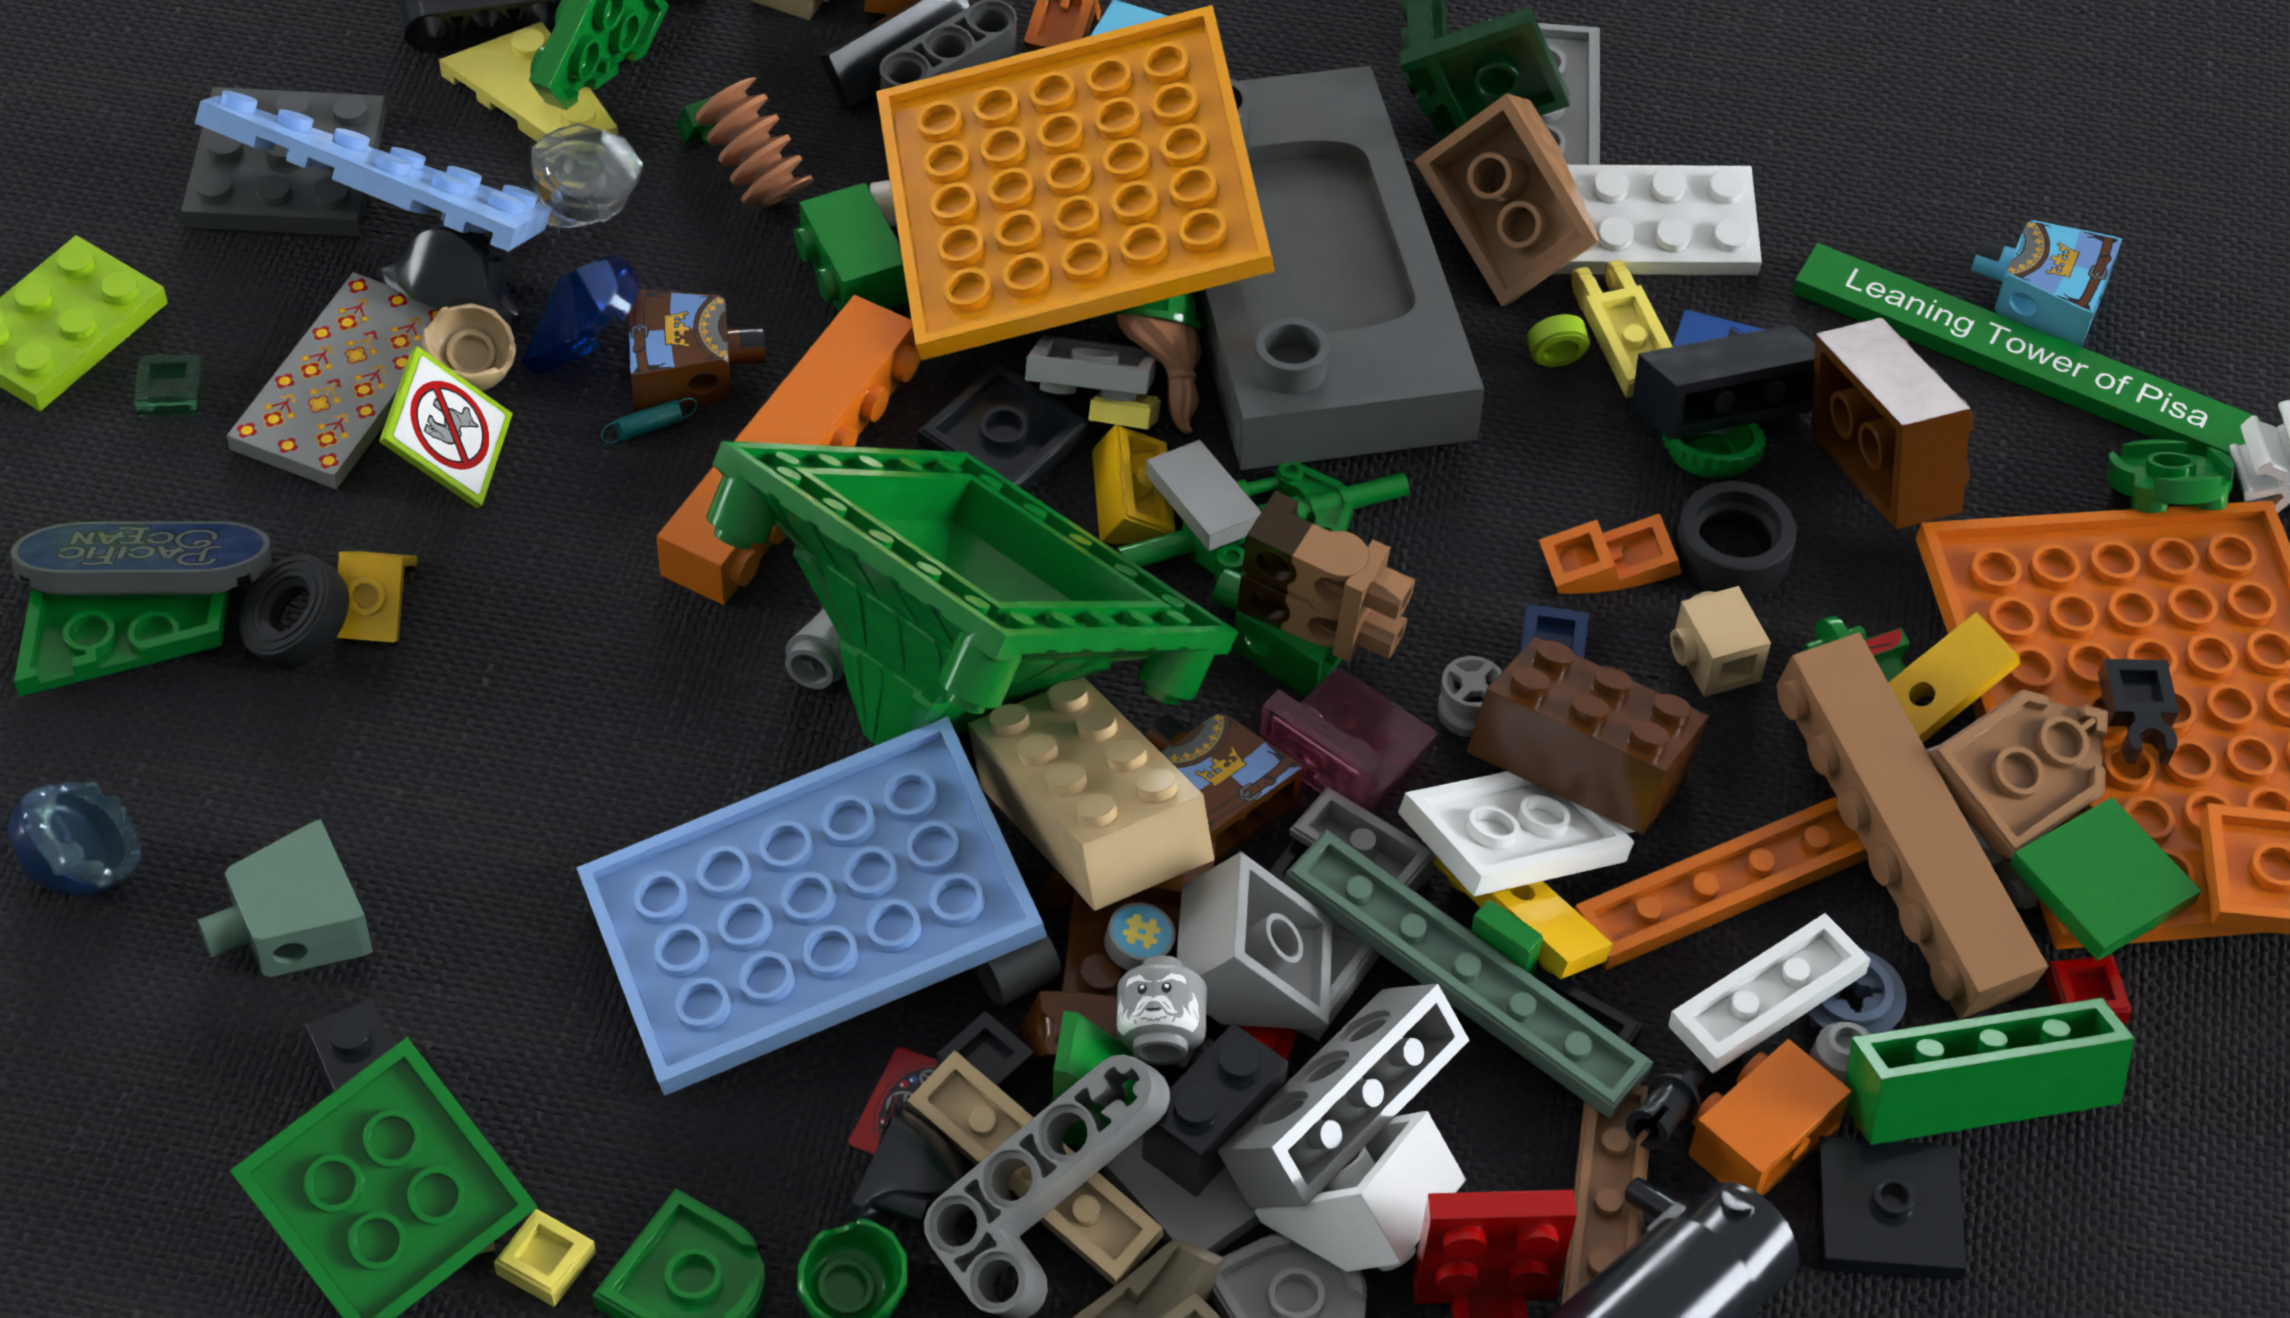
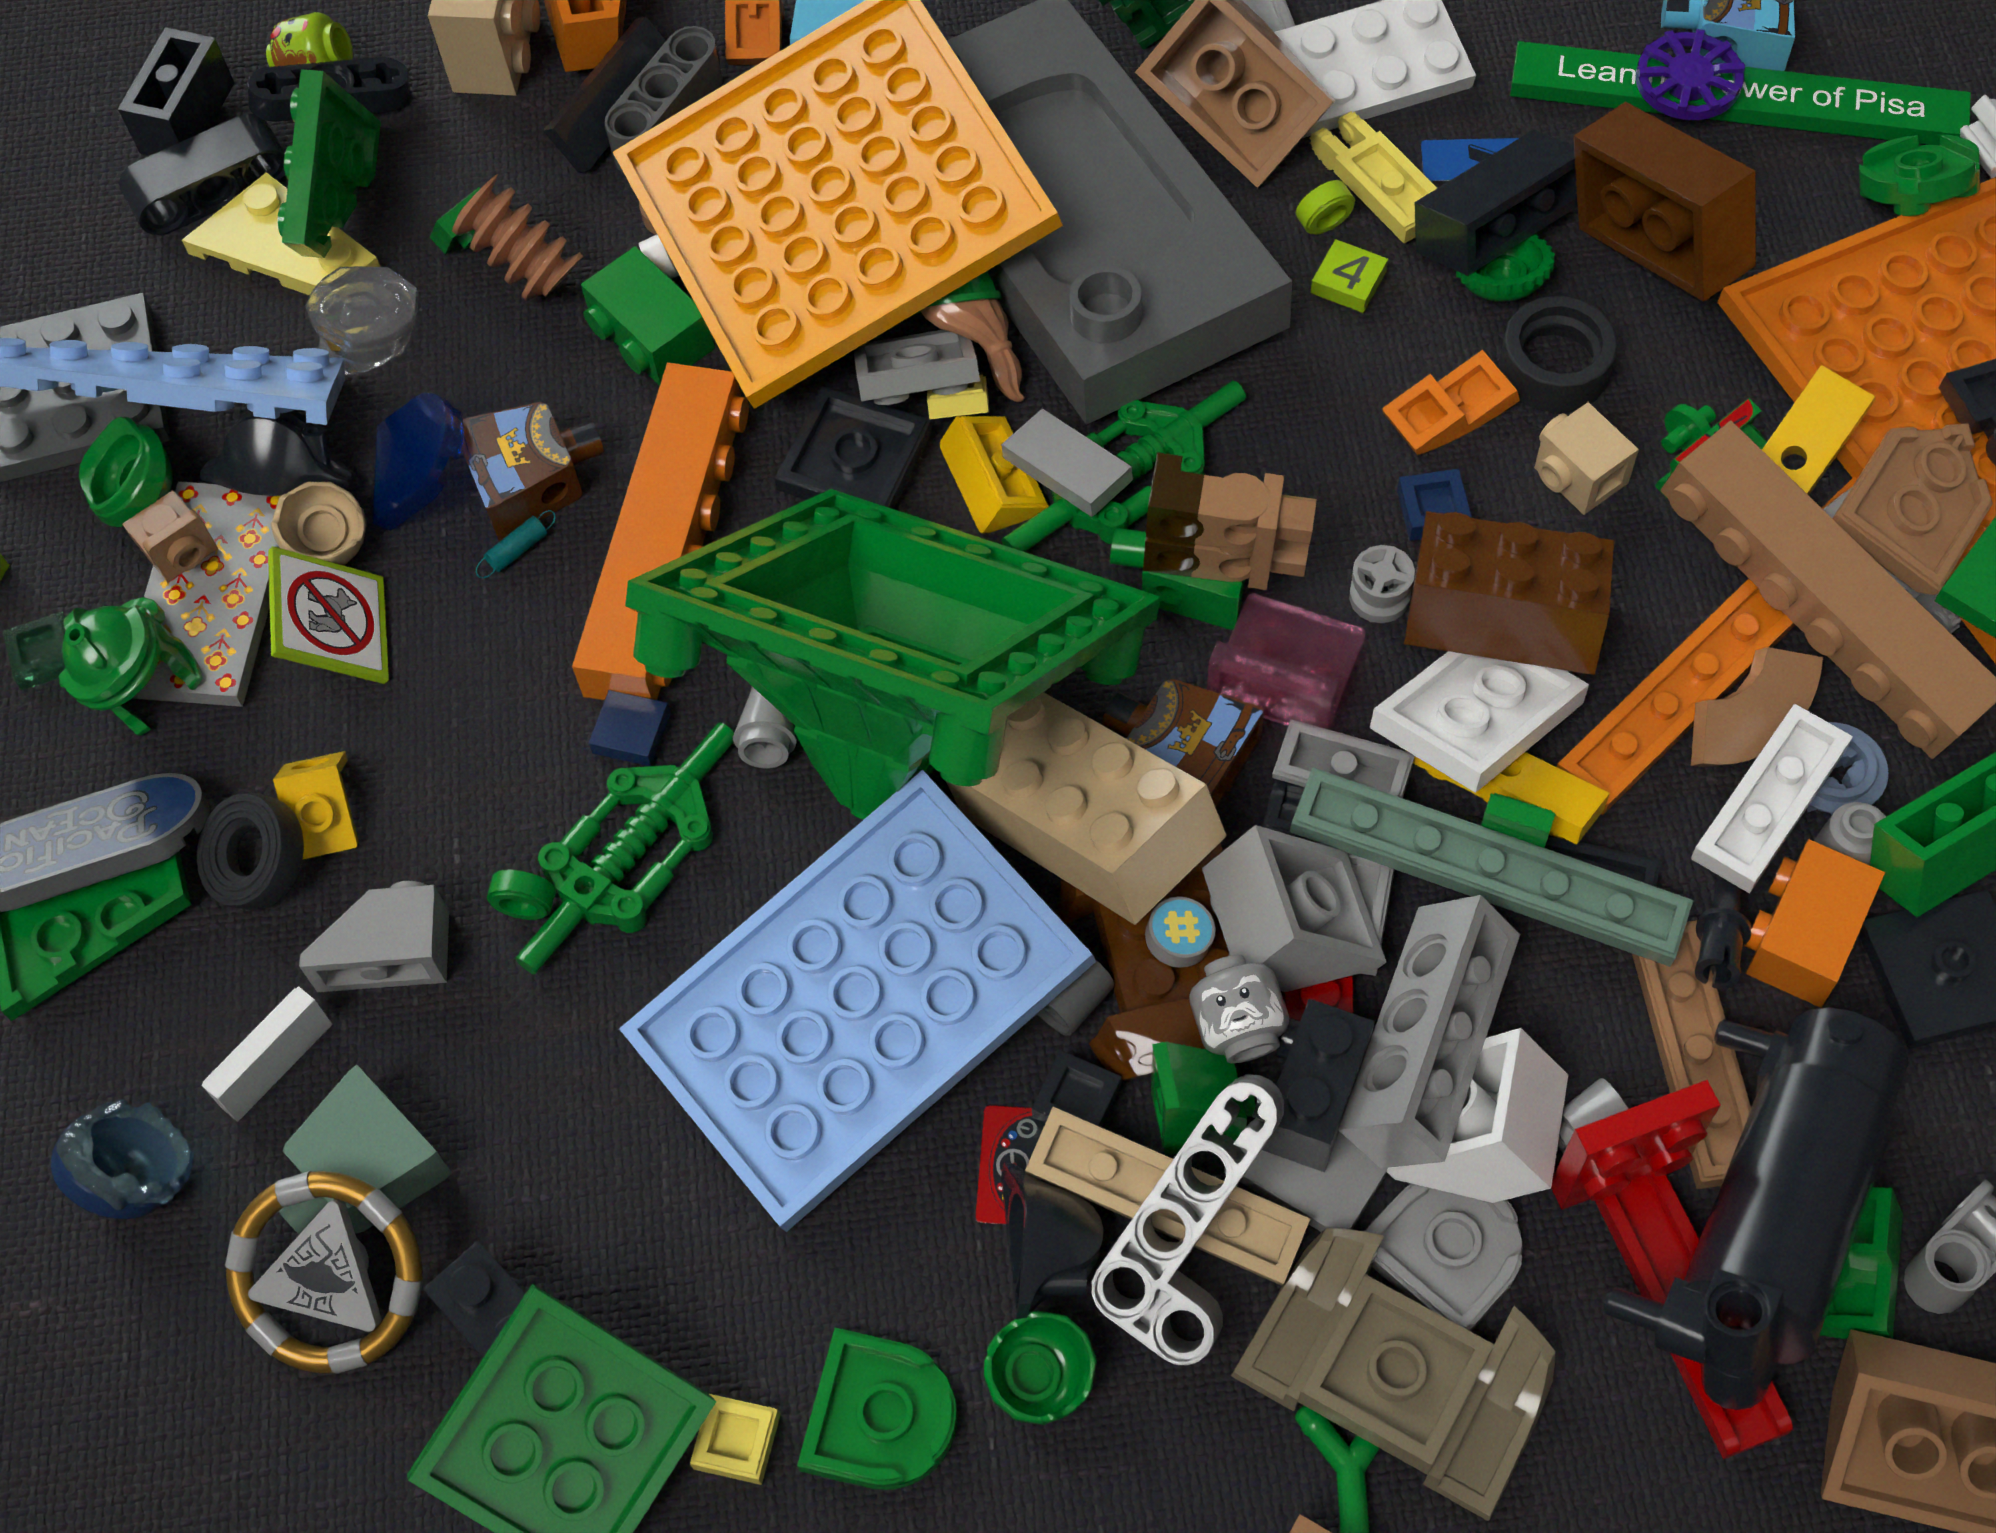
camera: 10 degrees left, 10 degrees up
(221, 988) = (324, 1272): none -> piece
(234, 399) = (115, 653): none -> green helmet
(242, 791) = (267, 1053): none -> white tile
(307, 250) = (124, 471): none -> green hat
(327, 316) = (171, 536): none -> medium nougat bracket
(386, 728) = (383, 941): none -> light grey slope
(531, 725) = (521, 894): none -> green tile
(602, 745) = (592, 892): none -> green bar
(692, 613) = (629, 728): none -> dark blue tile
(1558, 411) = (1349, 276): none -> lime tile
(1762, 920) = (1743, 722): none -> medium nougat tile
(1975, 320) = (1690, 75): none -> dark purple wheel

